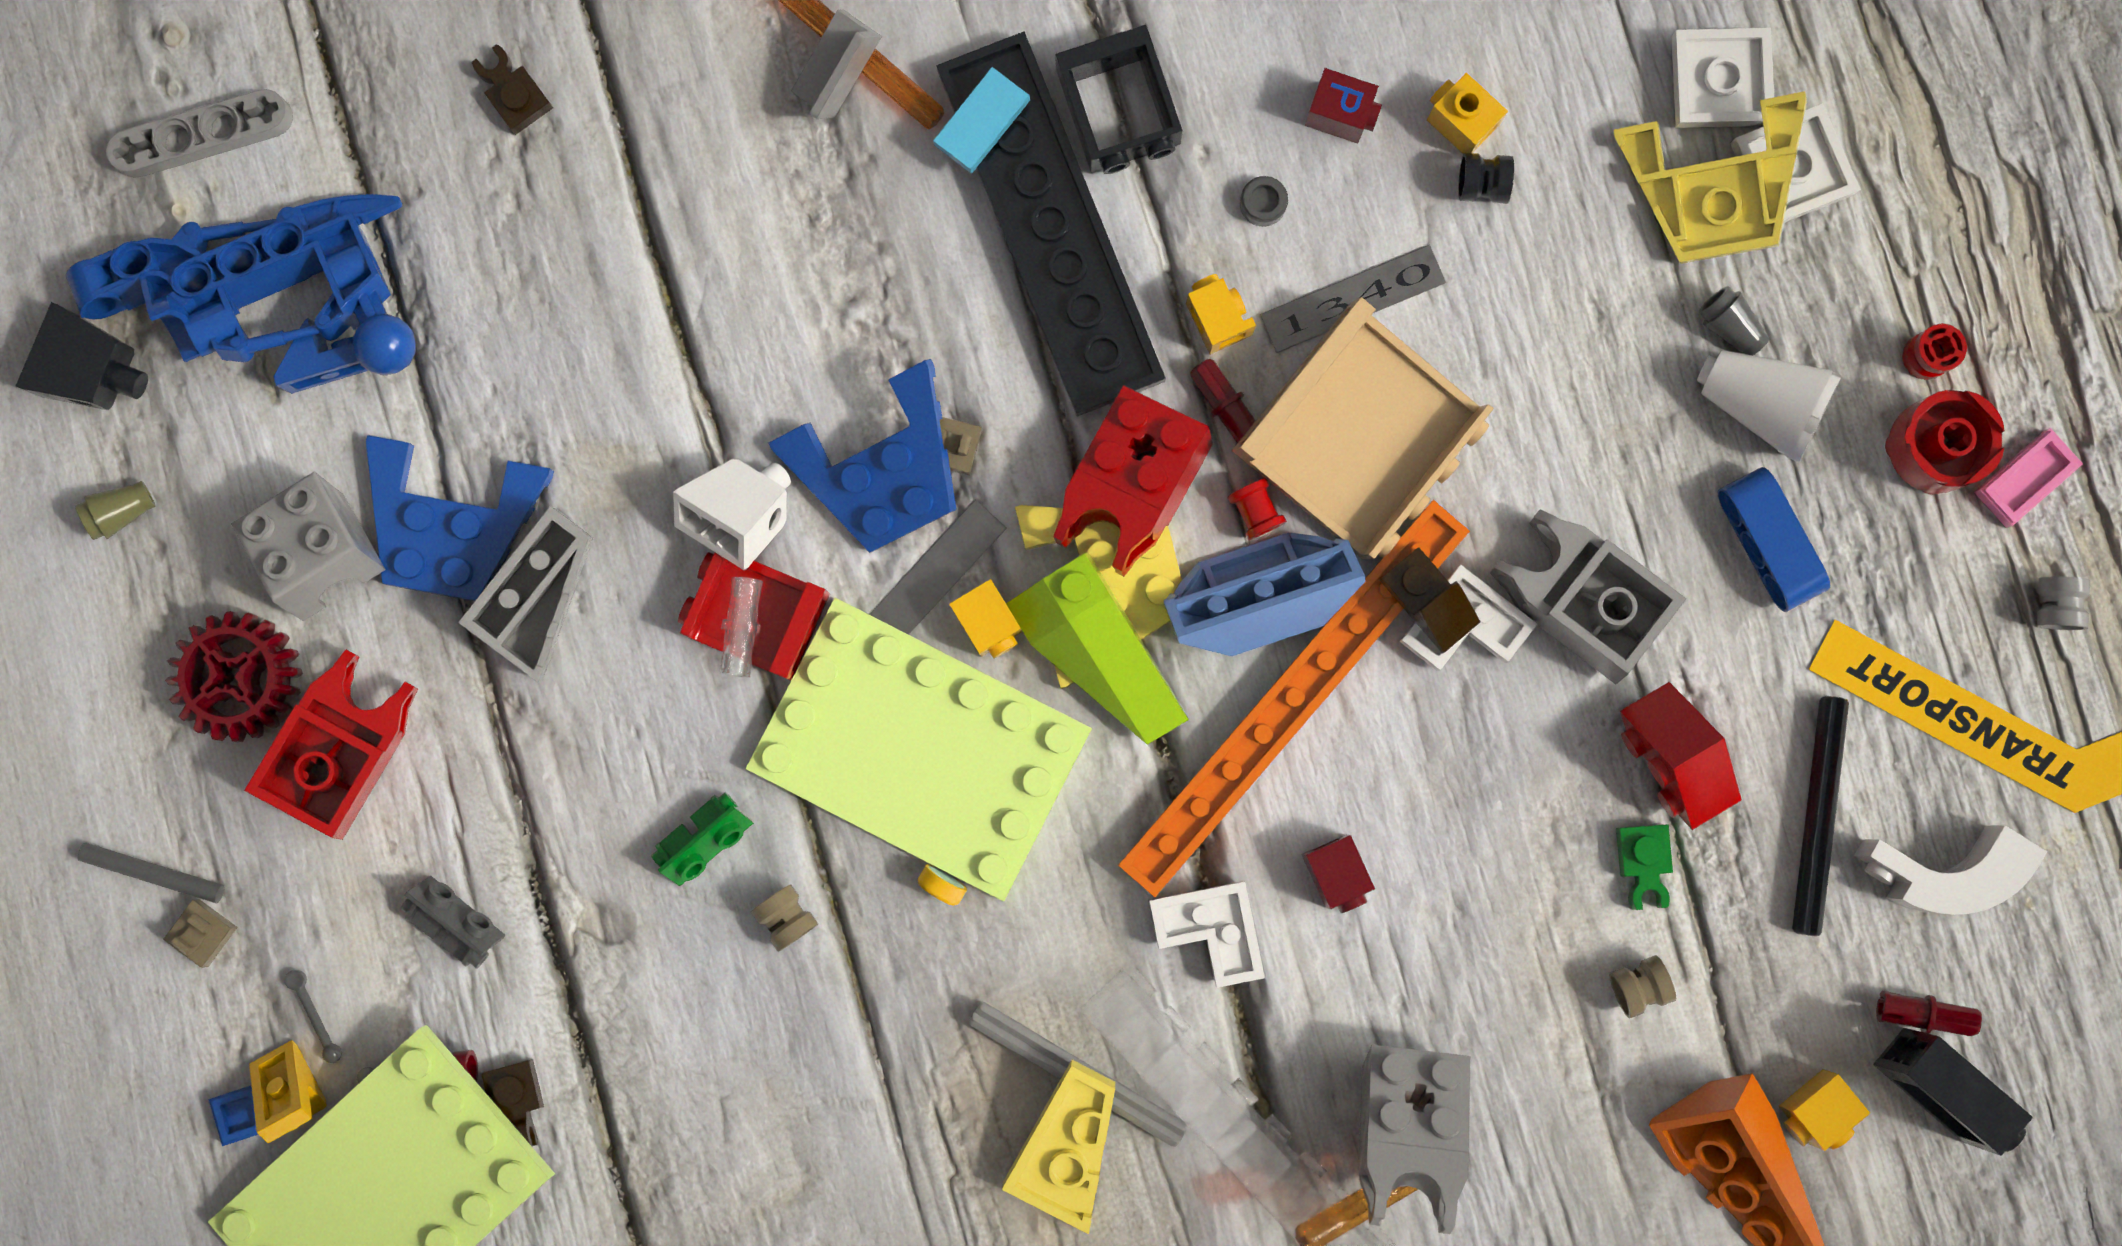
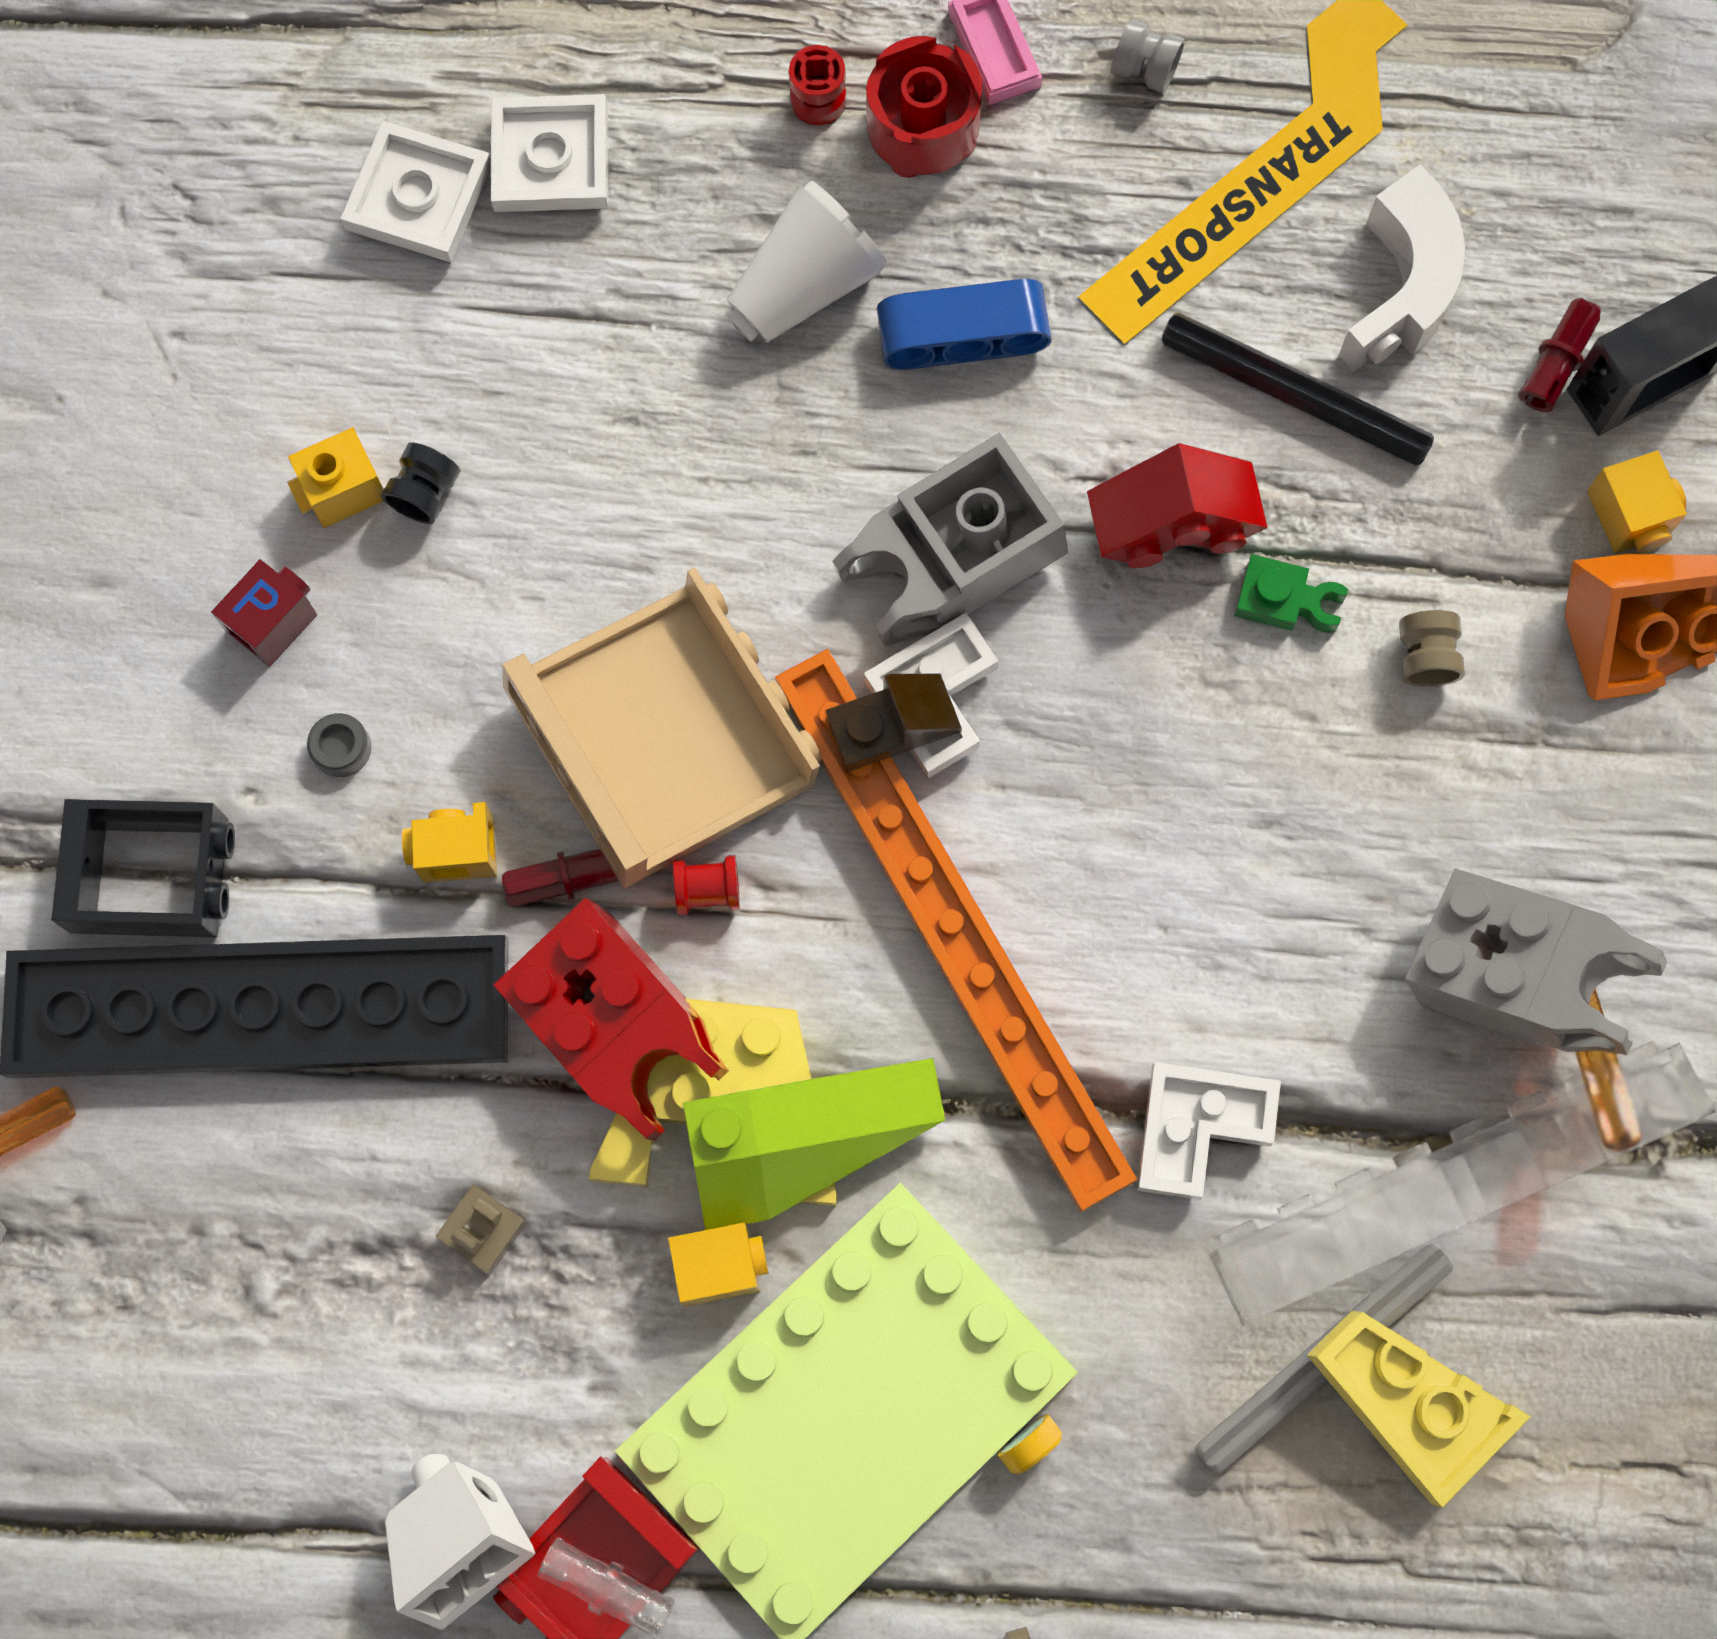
camera: 70 degrees left, 10 degrees down
(890, 484) = (499, 1325): blue wing -> none
(939, 568) = (629, 1304): flat silver sticker -> none
(981, 120) = (92, 1041): medium azure tile -> none
(1263, 593) = (811, 910): medium blue wedge -> none
(1339, 874) = (1182, 946): dark red brick -> none
(1379, 286) = (497, 728): flat silver sticker -> none
(1725, 202) = (559, 237): light yellow wing -> none
(1734, 321) = (697, 278): dark grey cone -> none

